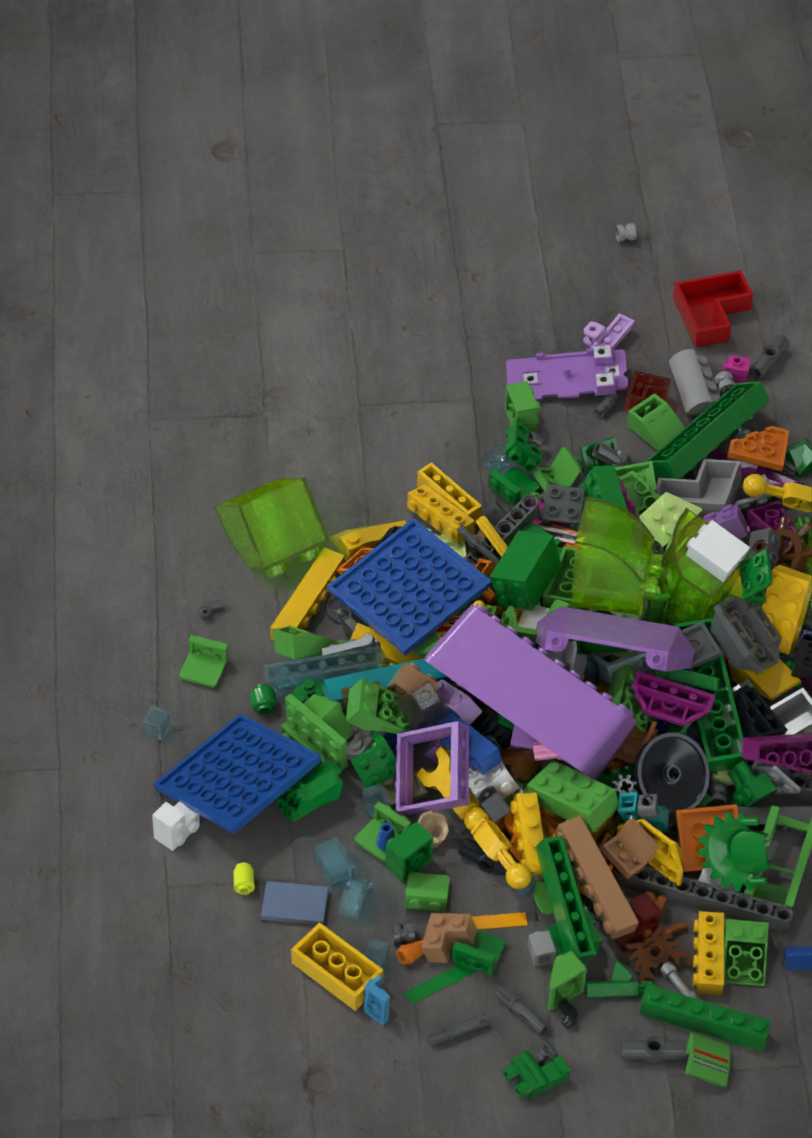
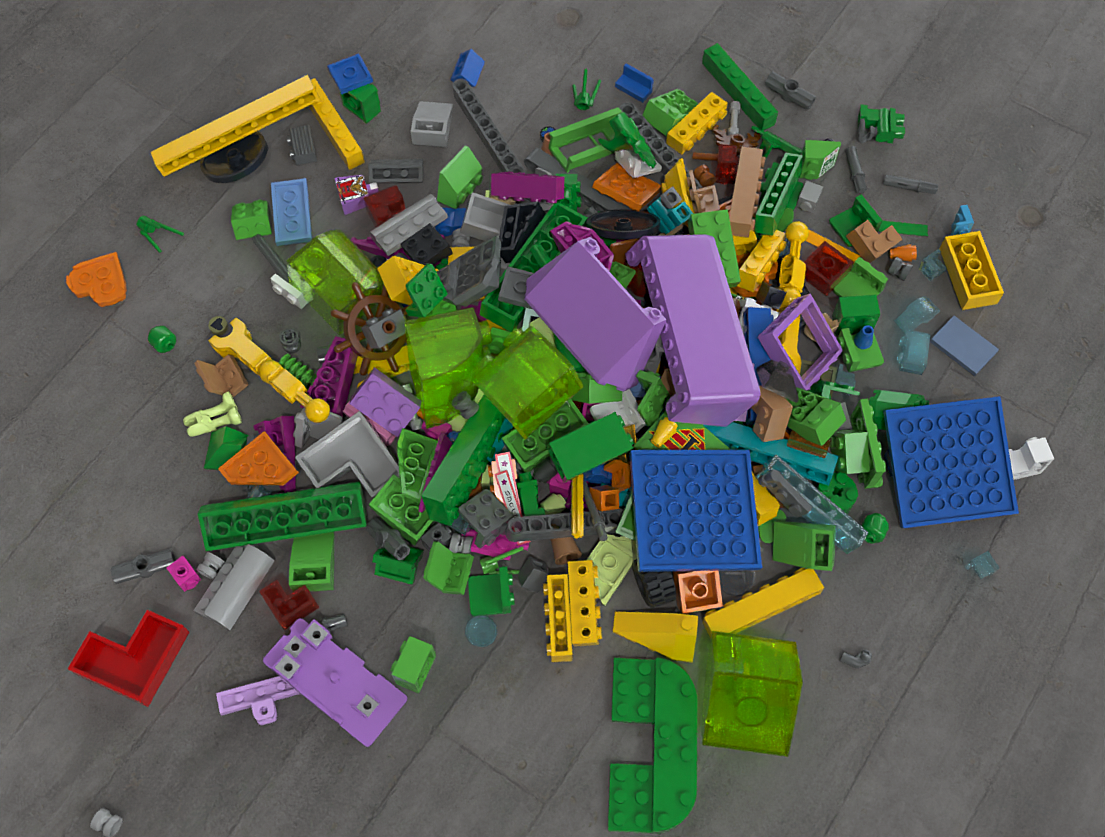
camera: 140 degrees left, 15 degrees up
(205, 661) = (901, 600): bright green bracket -> none
(243, 878) = (994, 384): neon yellow brick -> none
(288, 452) = (662, 794): none -> green plate
(469, 881) = (826, 268): none -> clear red brick
(519, 449) = (455, 616): green hips -> none
(618, 784) = (671, 227): light grey gear -> none
(664, 514) = (416, 434): yellowish green wing -> none
(708, 1060) = (762, 60): bright green slope -> none
(717, 550) = (436, 327): white brick -> none

